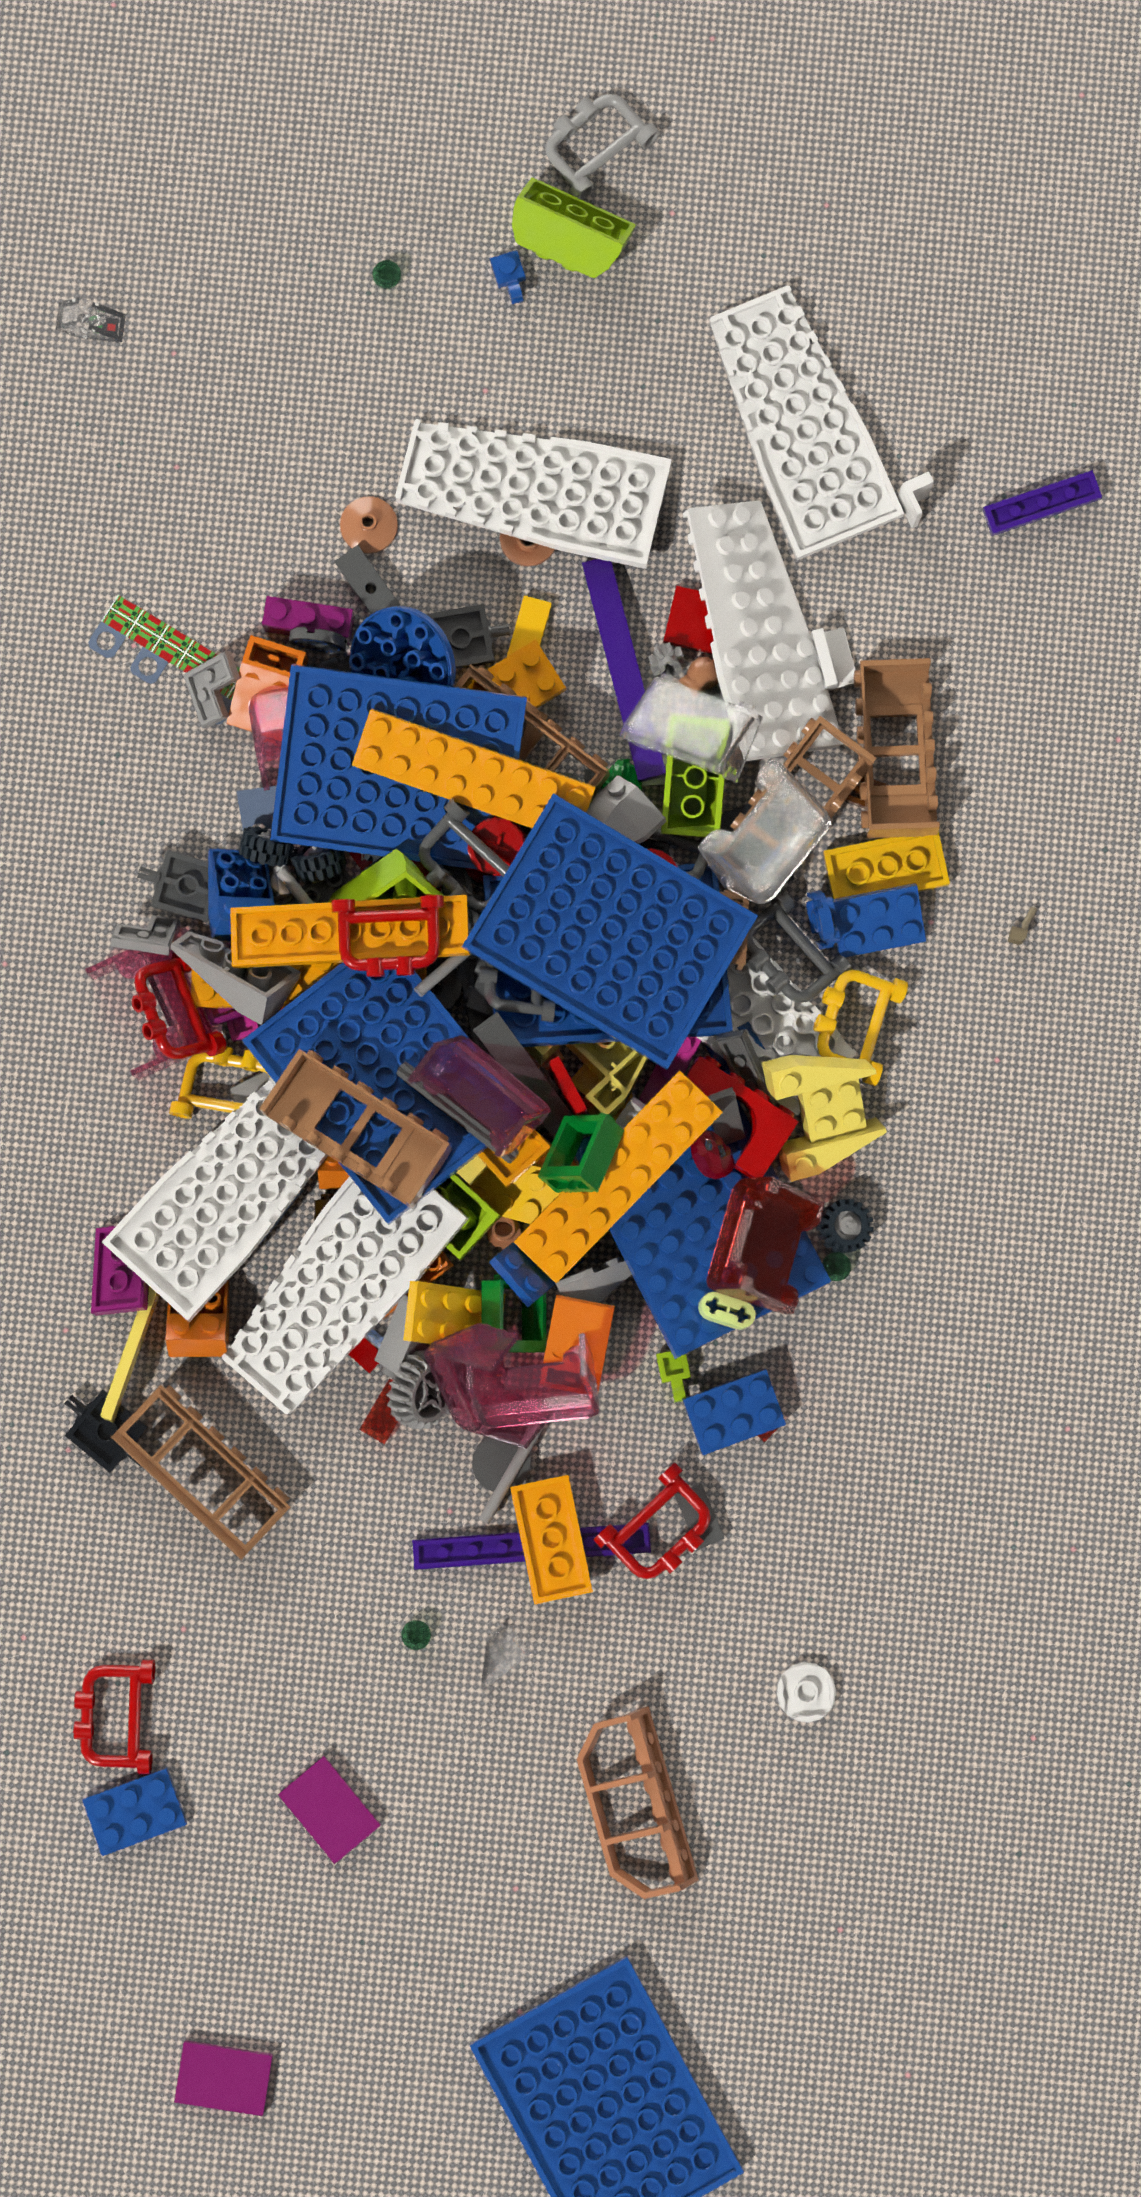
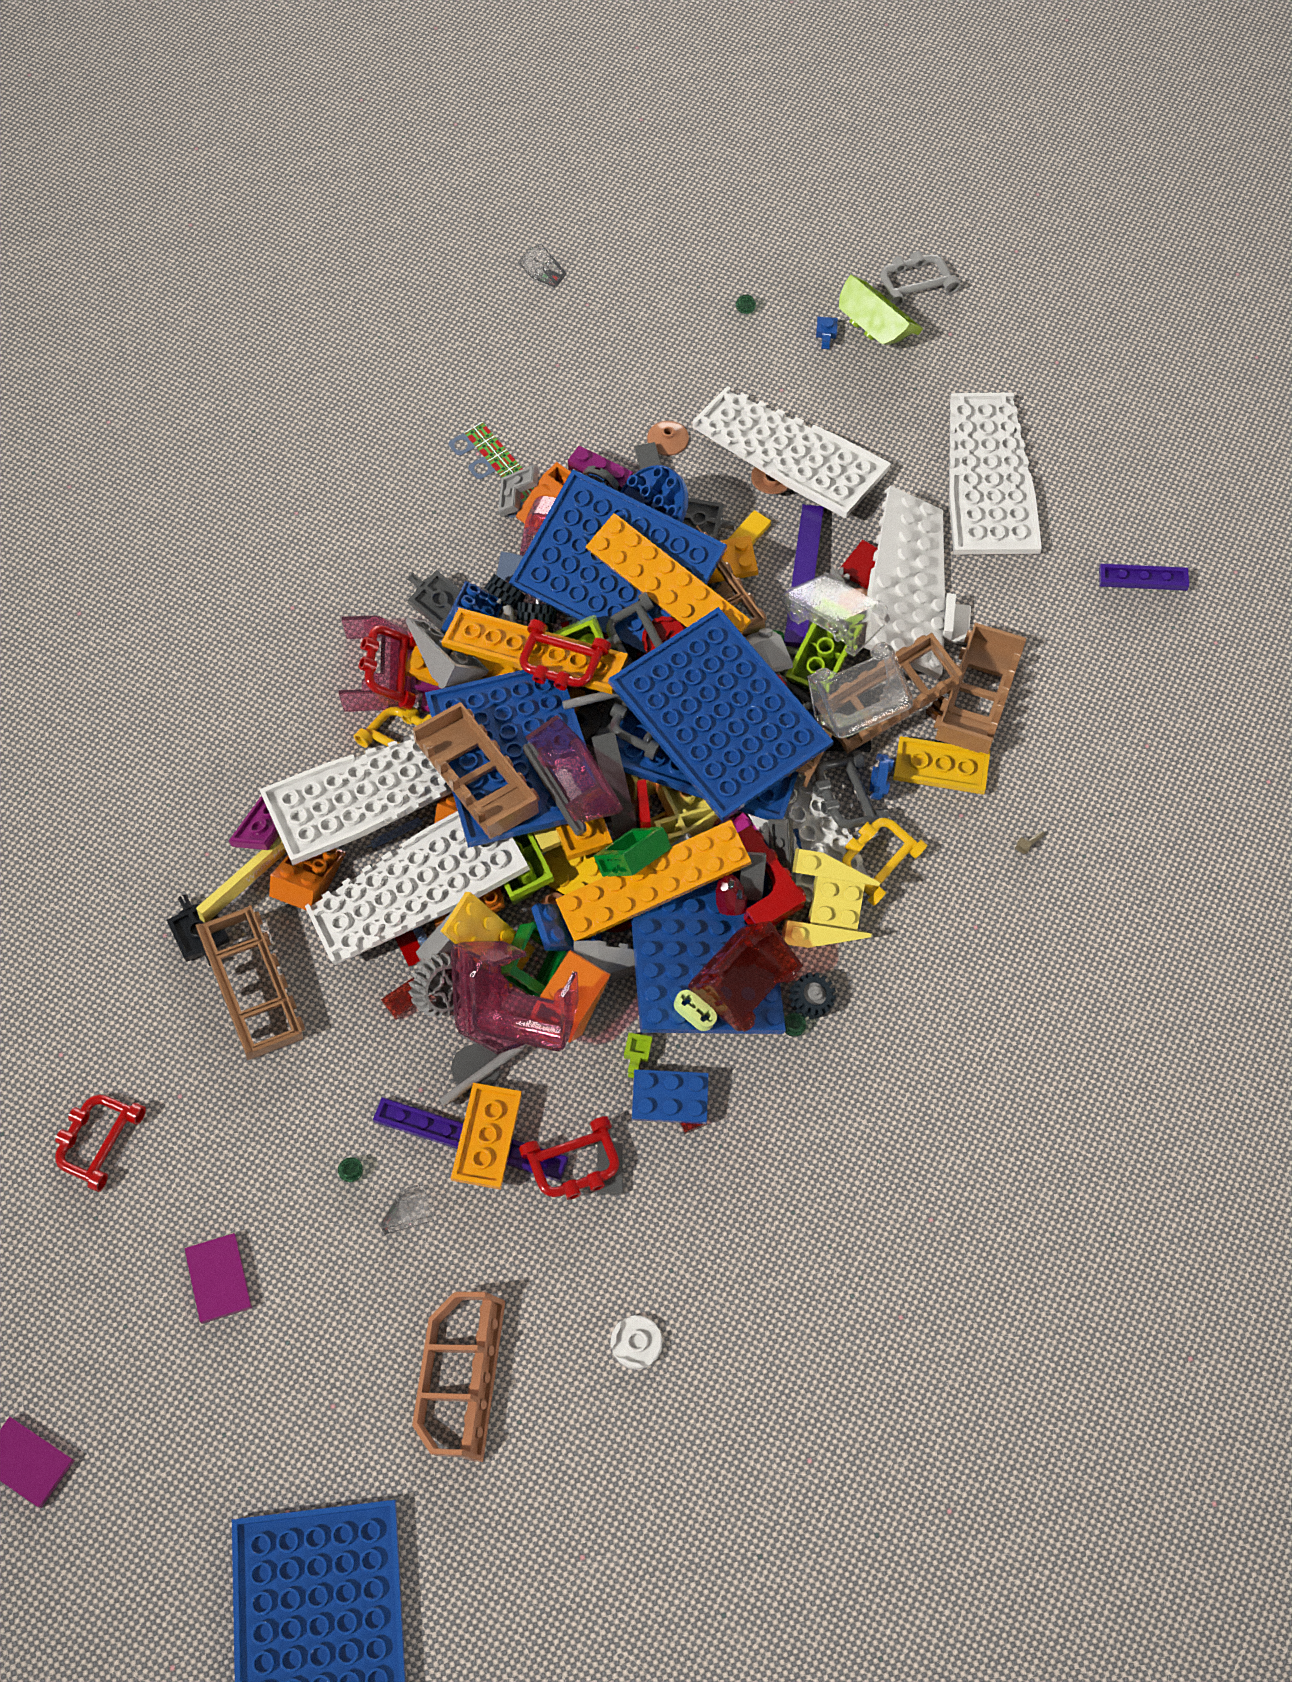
camera: 20 degrees right, 20 degrees down
(134, 1811) = (70, 1217): blue plate -> none
(153, 939) = (390, 614): light grey tile -> none
(879, 920) = (922, 796): blue plate -> none
(911, 493) = (1054, 536): white panel -> none

